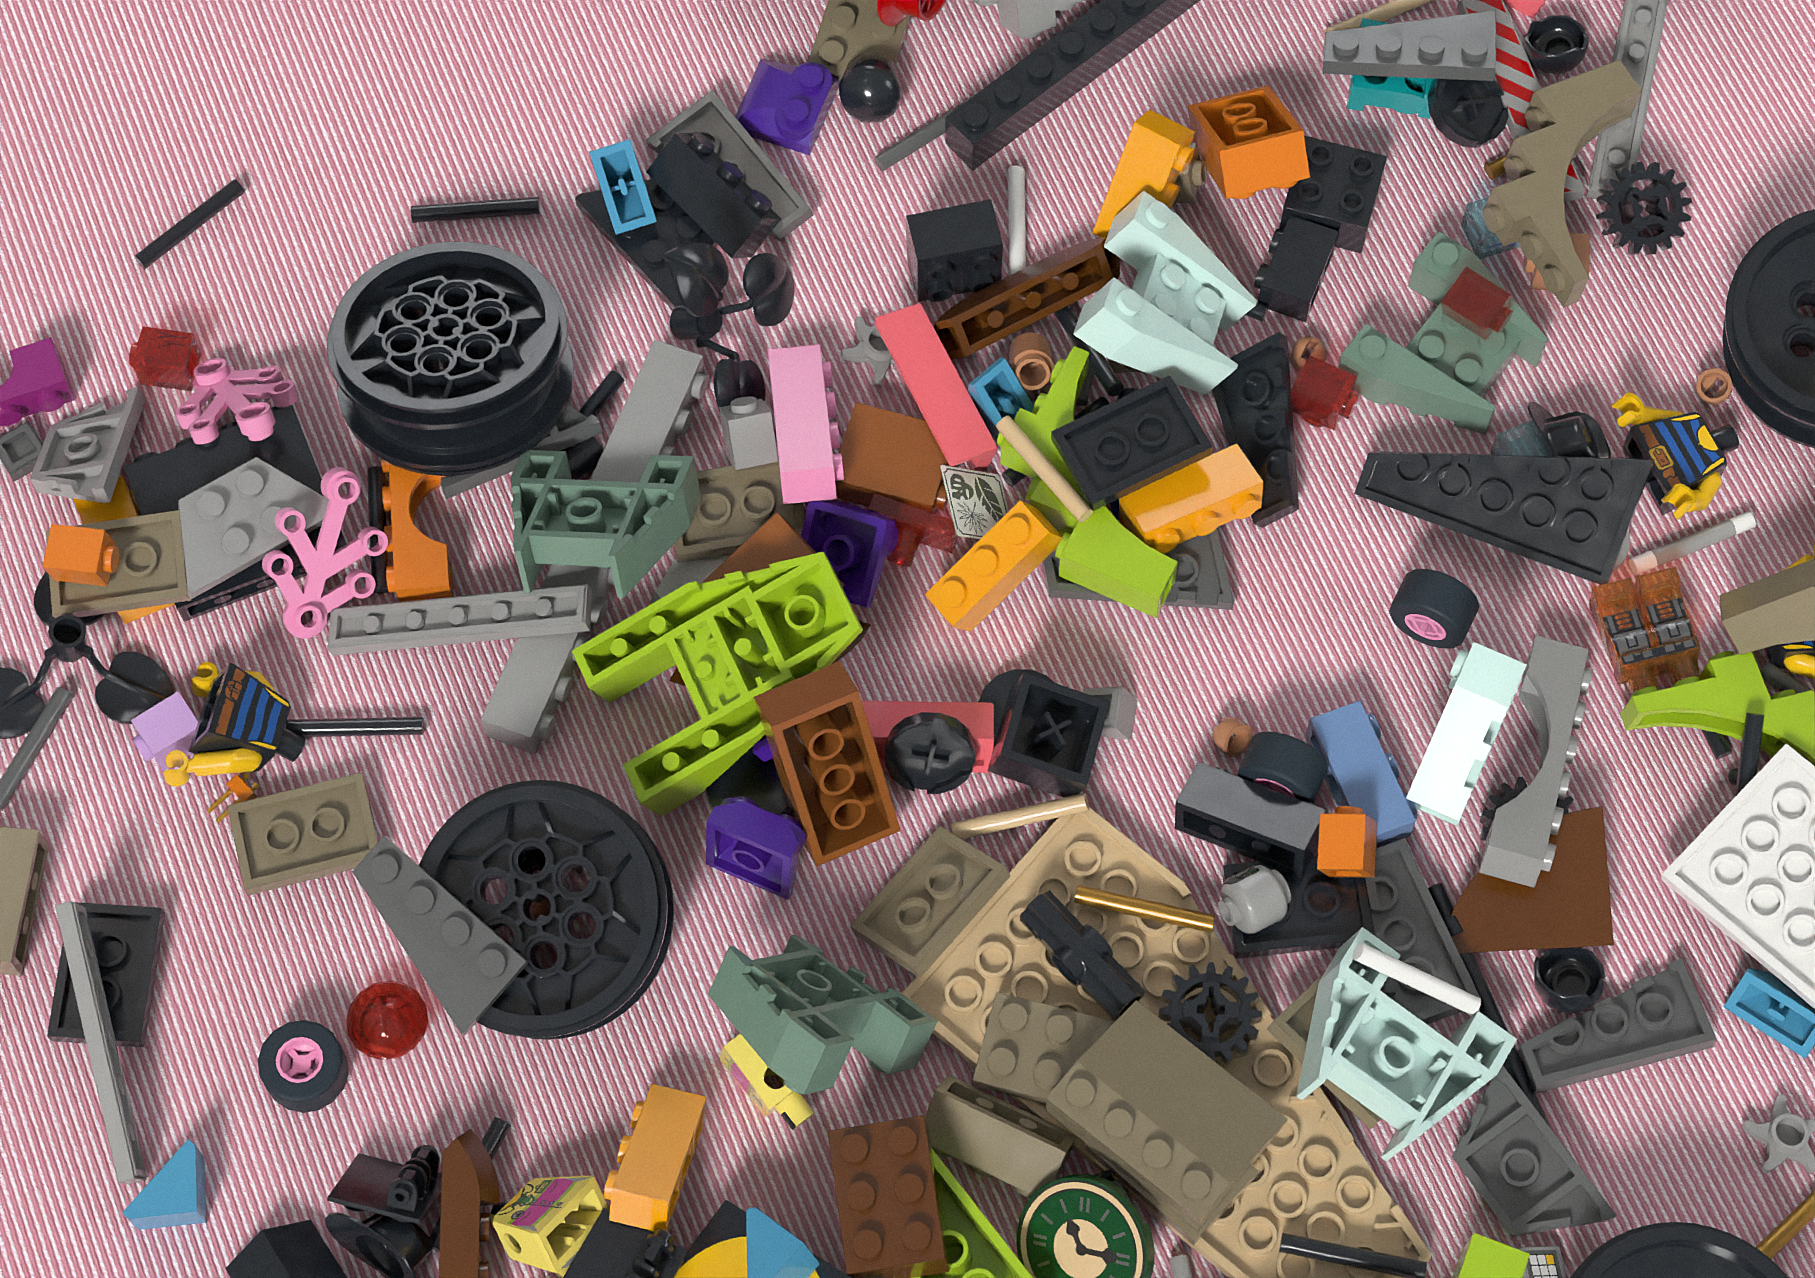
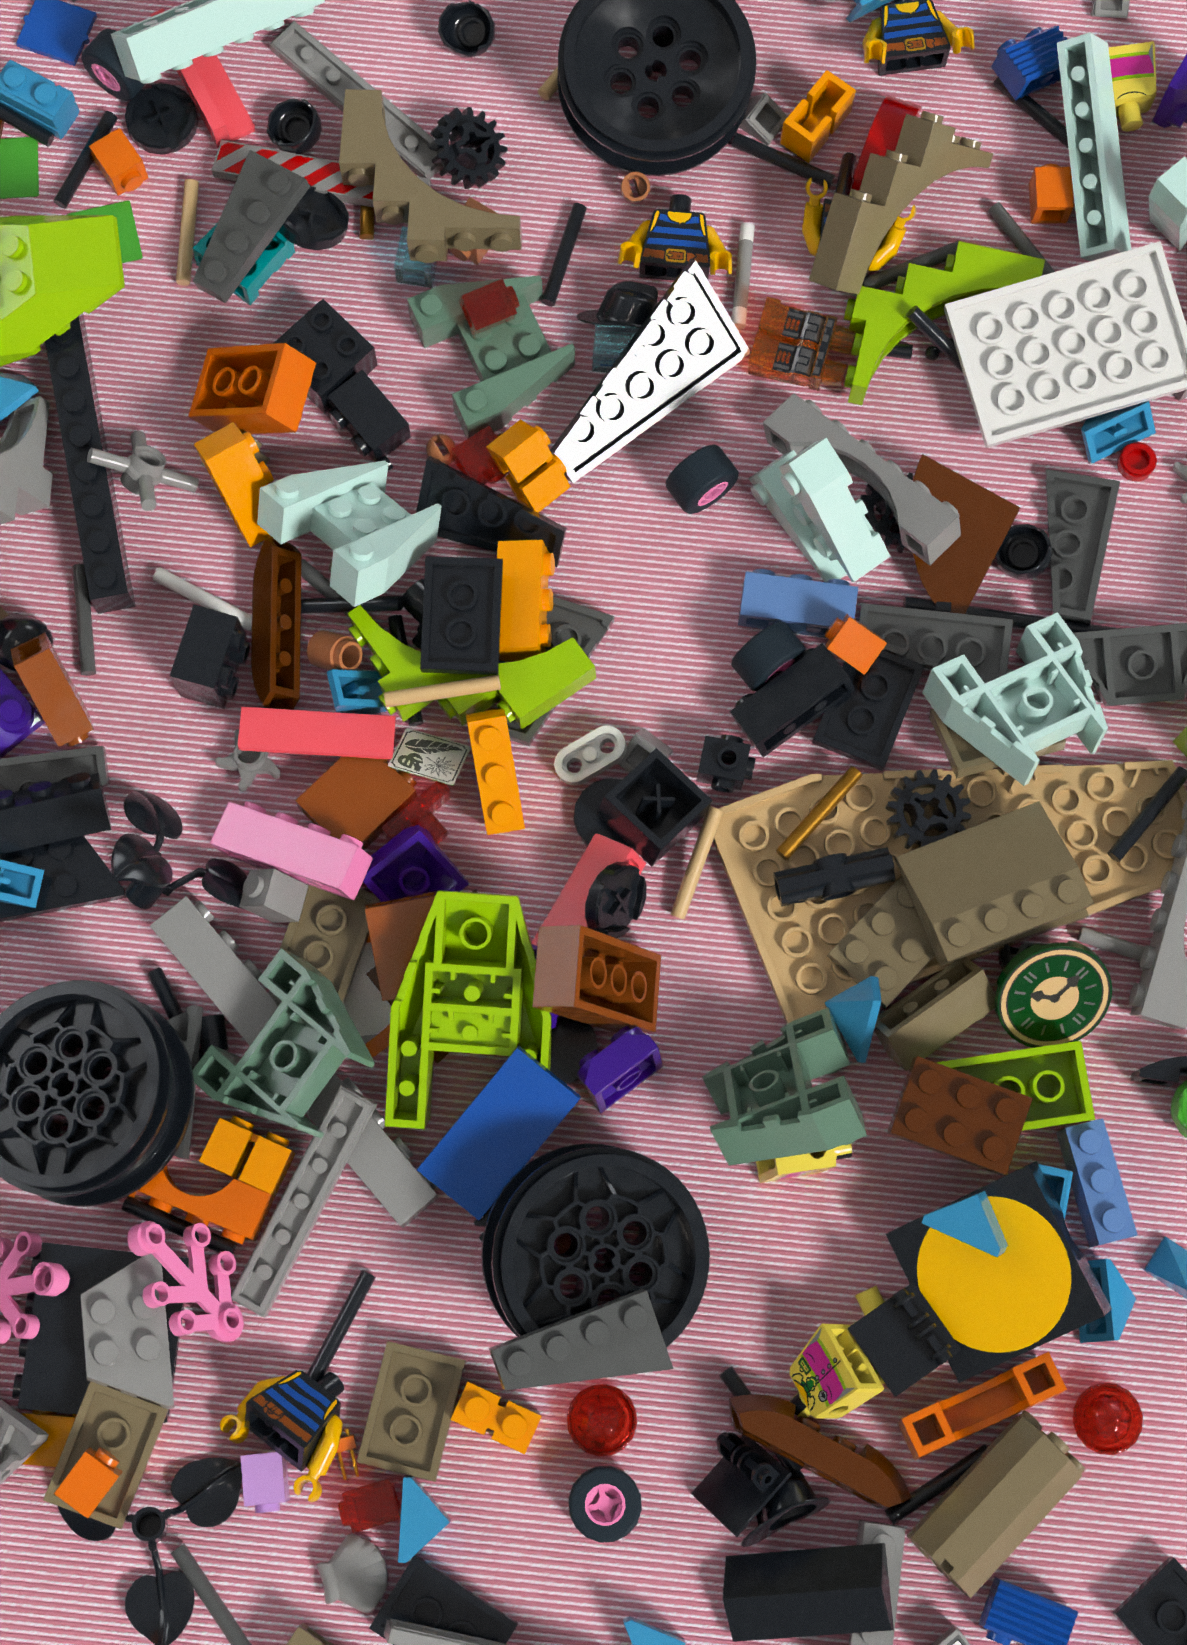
camera: 65 degrees left, 10 degrees up
(117, 866) = (355, 1574): none -> light grey animal
(192, 843) = (370, 1505): none -> clear red brick
(199, 894) = (419, 1519): none -> dark azure slope
(336, 931) = (511, 1425): none -> light orange piece
(479, 548) = (230, 1147): none -> light orange piece
(624, 753) = (498, 1132): none -> blue tile
(655, 1158) = (827, 1269): light orange brick -> none
(833, 129) = (52, 691): none -> dark orange brick
(930, 901) = (728, 963): dark tan plate -> none
(944, 1053) = (856, 1015): none -> dark azure slope
(1075, 656) = (588, 752): none -> white plate
(1106, 94) = (143, 470): none -> light grey bar
(1142, 788) = (724, 750): none -> black brick
(1240, 741) = (714, 676): nougat hinge -> none
(1254, 899) = (859, 731): light grey head -> none
(1337, 435) = (534, 471): none -> light orange piece
(1416, 978) = (987, 654): white bar -> none
(1596, 360) = (563, 254): none -> black bar
(1757, 1054) = (1136, 461): none -> red tile
(1771, 140) = (466, 29): none -> black hair

